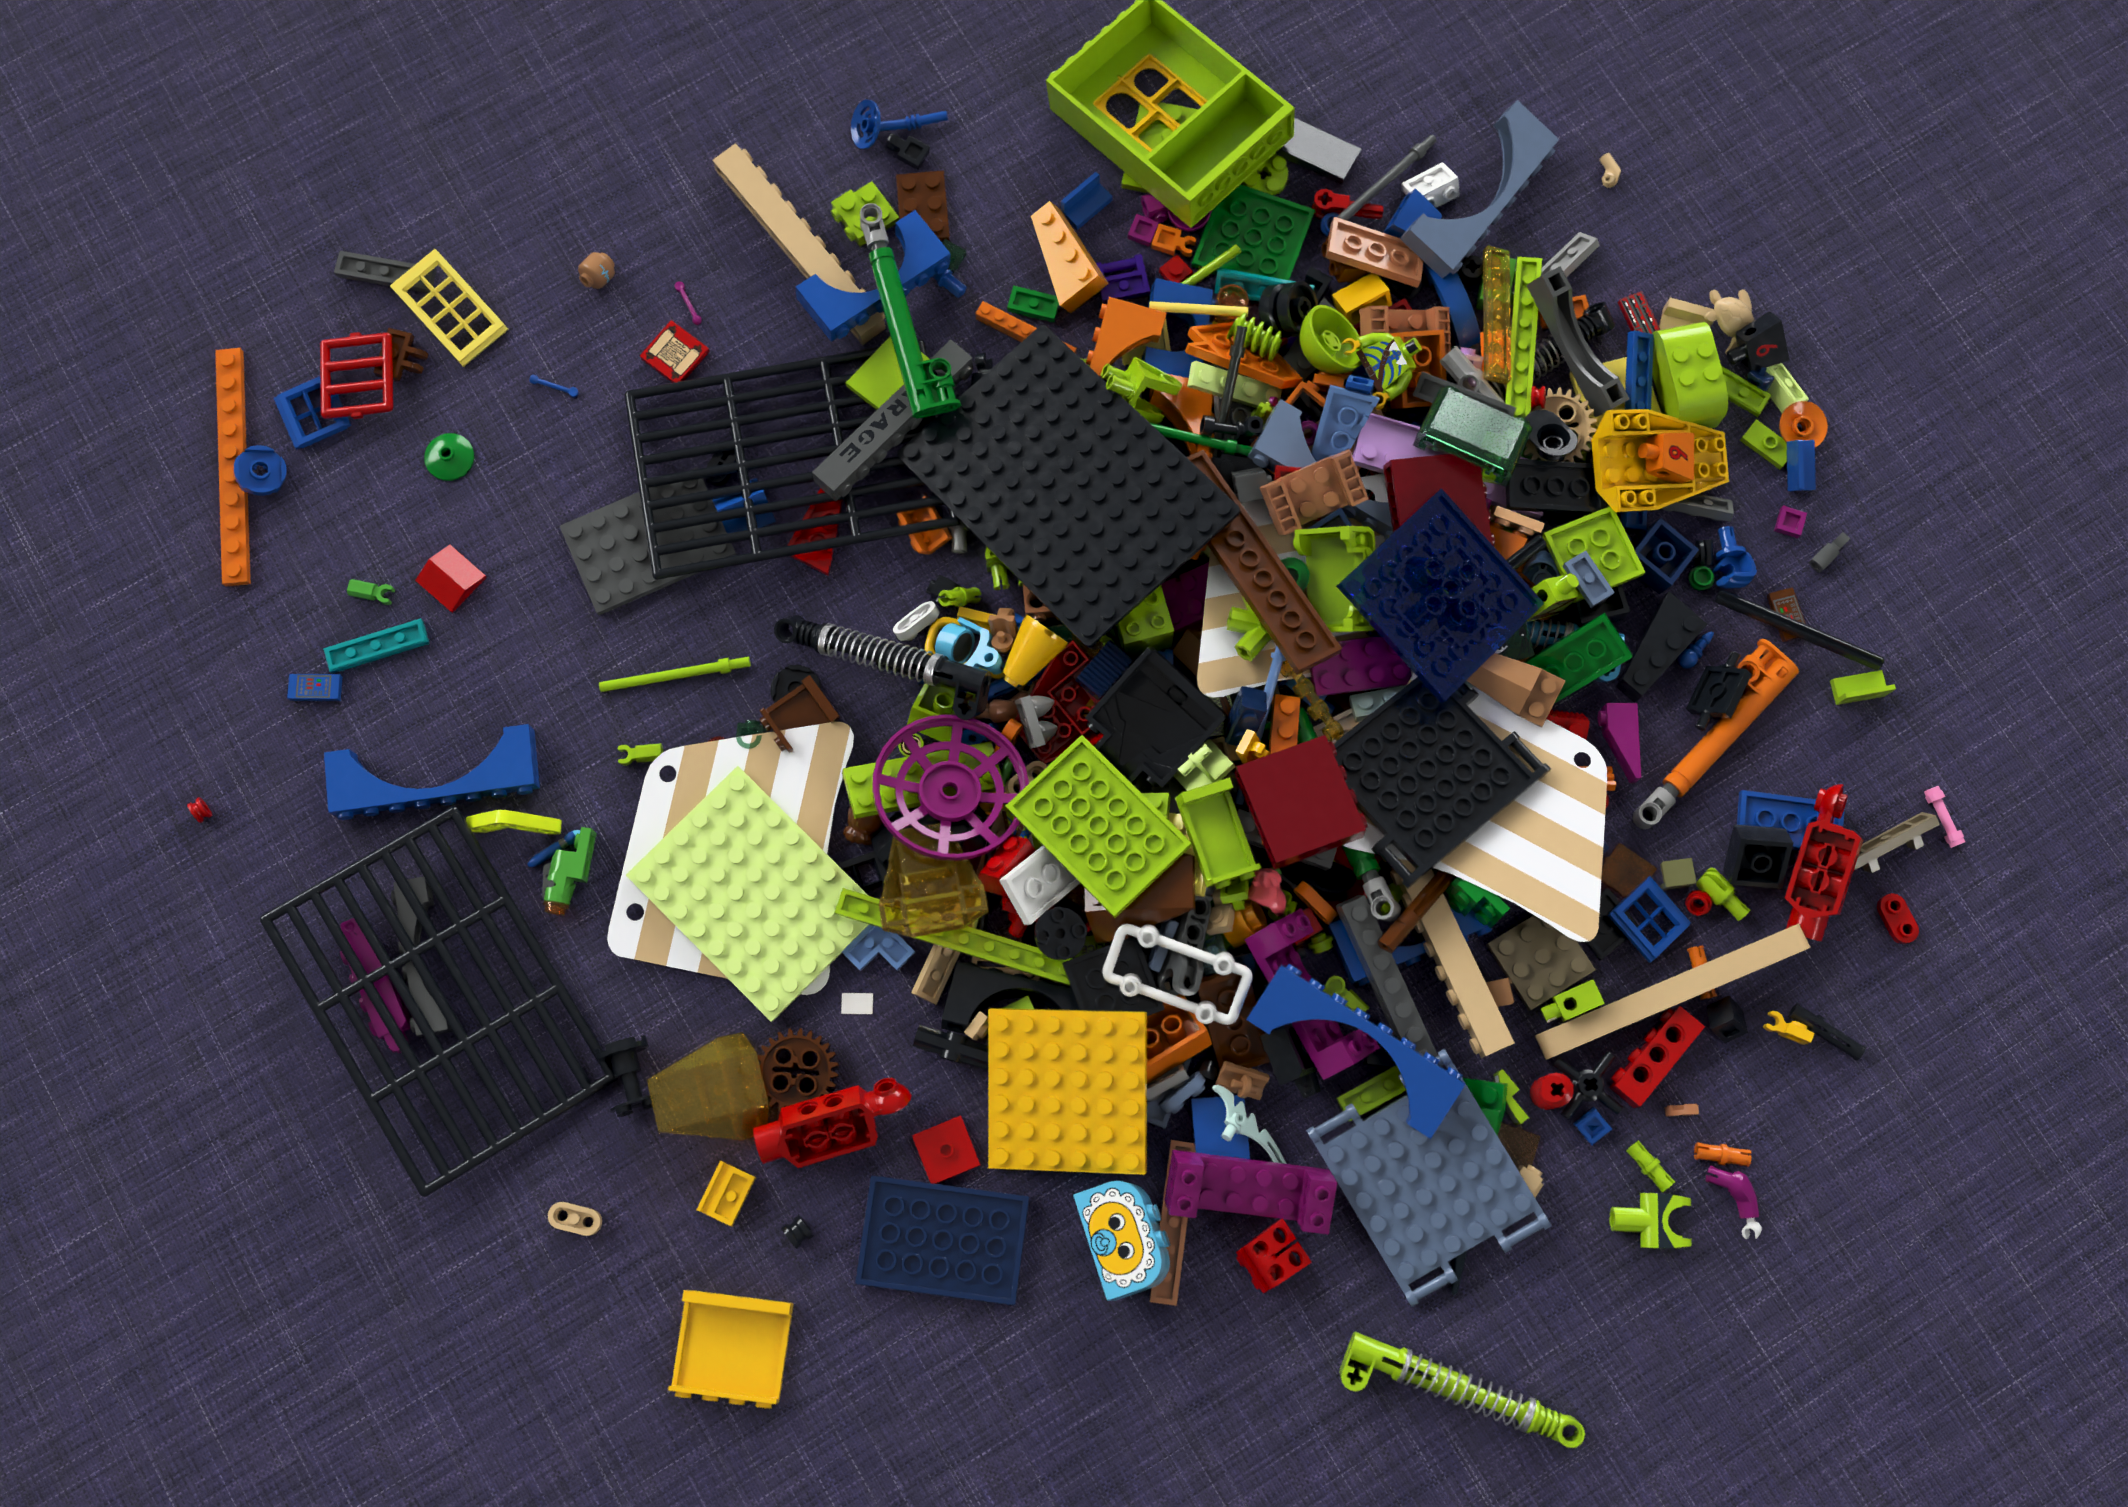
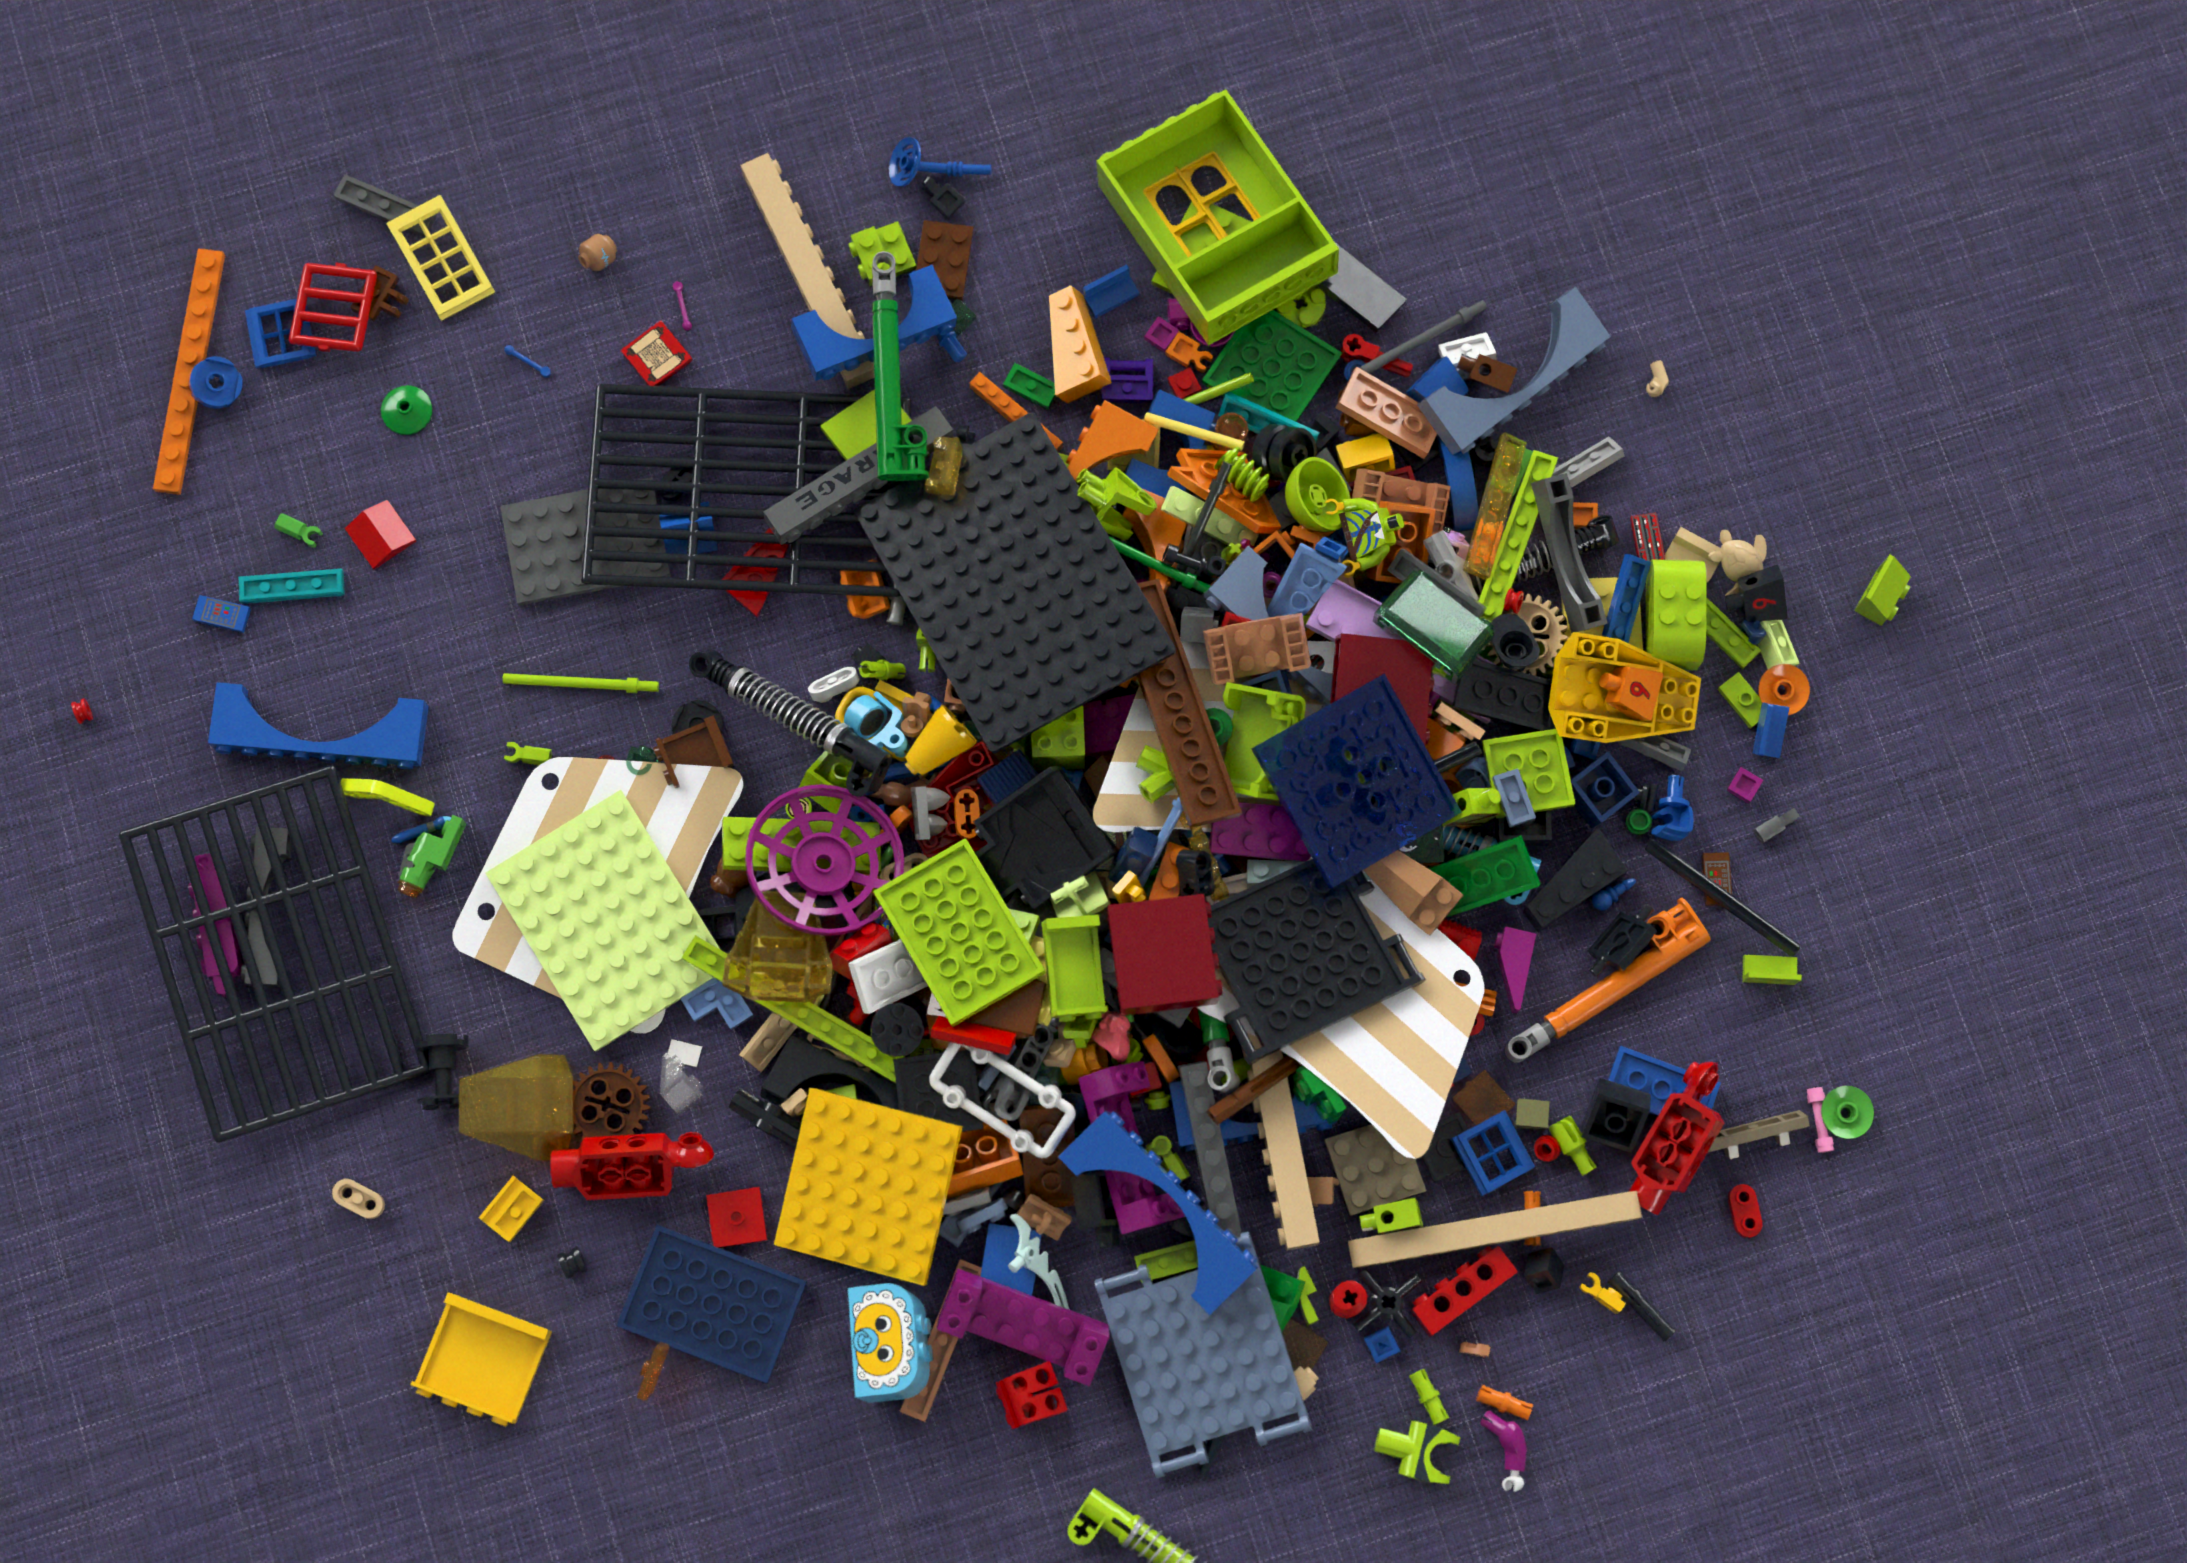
camera: 10 degrees right, 0 degrees up
(857, 1037) = (675, 1085): none -> clear slope
(900, 1319) = (651, 1371): none -> clear orange plate
(973, 391) = (944, 466): none -> clear yellow hinge
(1068, 714) = (960, 814): none -> orange beam
(1137, 921) = (974, 1035): none -> red tile
(1308, 716) = (1195, 872): none -> black piece
(1468, 195) = (1499, 376): none -> reddish brown torso
(1870, 314) = (1884, 591): none -> lime slope
(1978, 799) = (1859, 1112): none -> bright green dish

